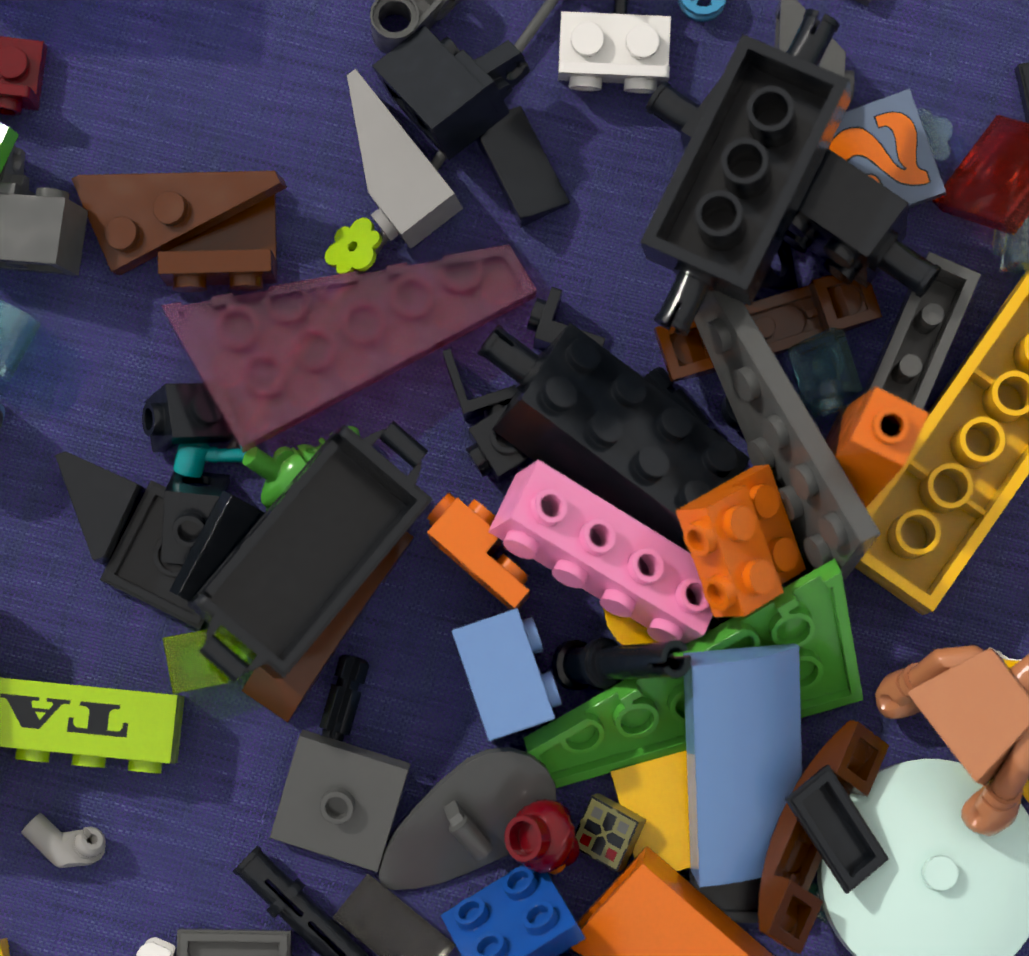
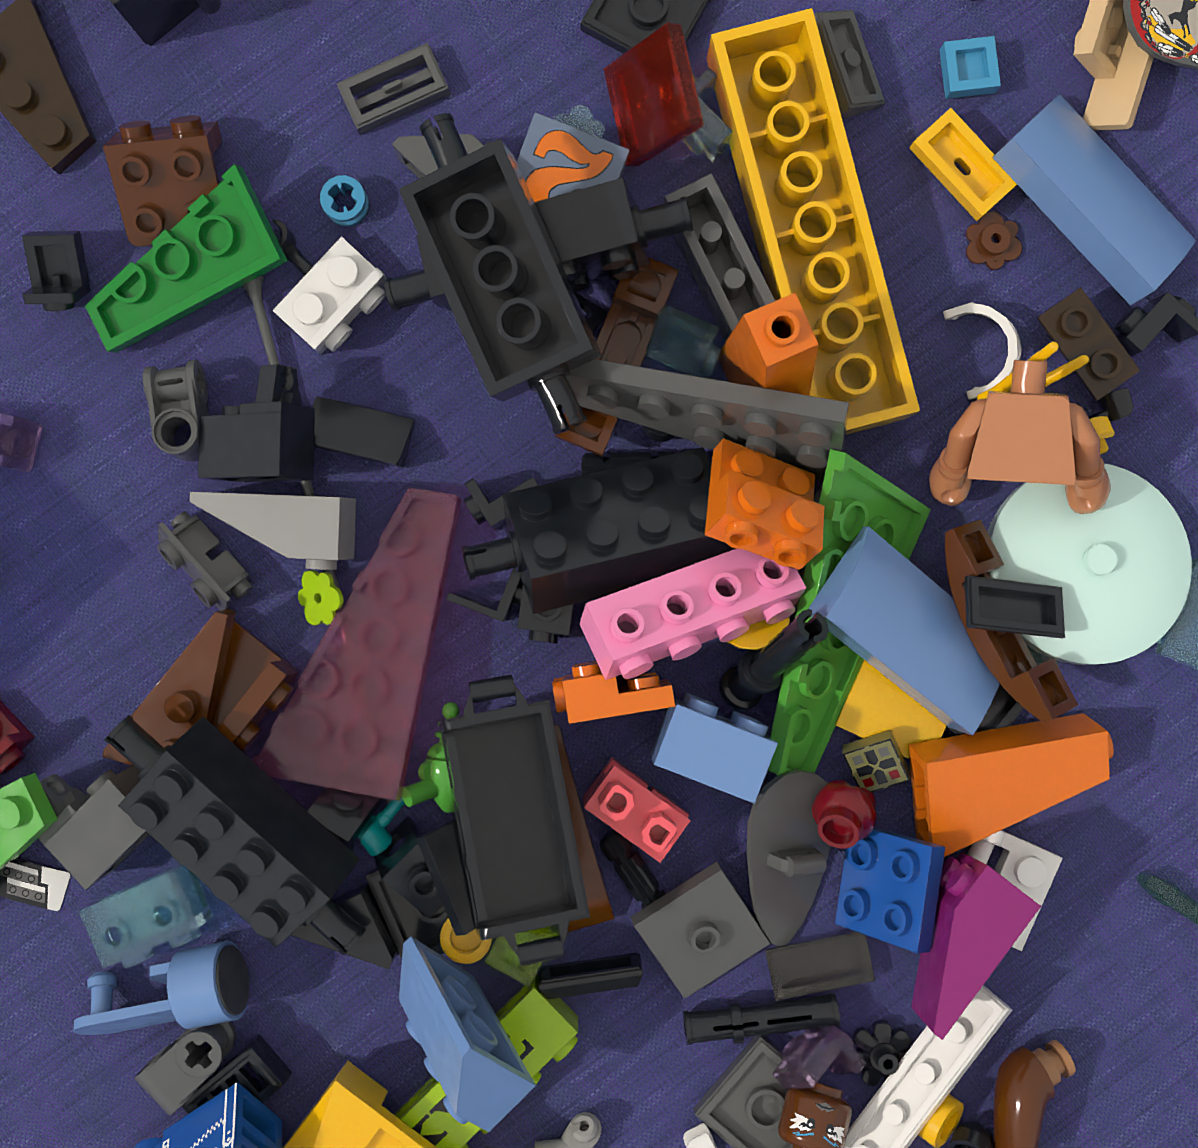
camera: 50 degrees left, 5 degrees up
(89, 660) = (460, 1038): none -> medium blue slope
(109, 339) = (238, 832): none -> black brick
(166, 610) = (463, 948): none -> yellow tile
(223, 739) = (591, 976): none -> black tile
(303, 105) = (188, 548): none -> dark grey hinge
(397, 660) = (635, 812): none -> coral hips

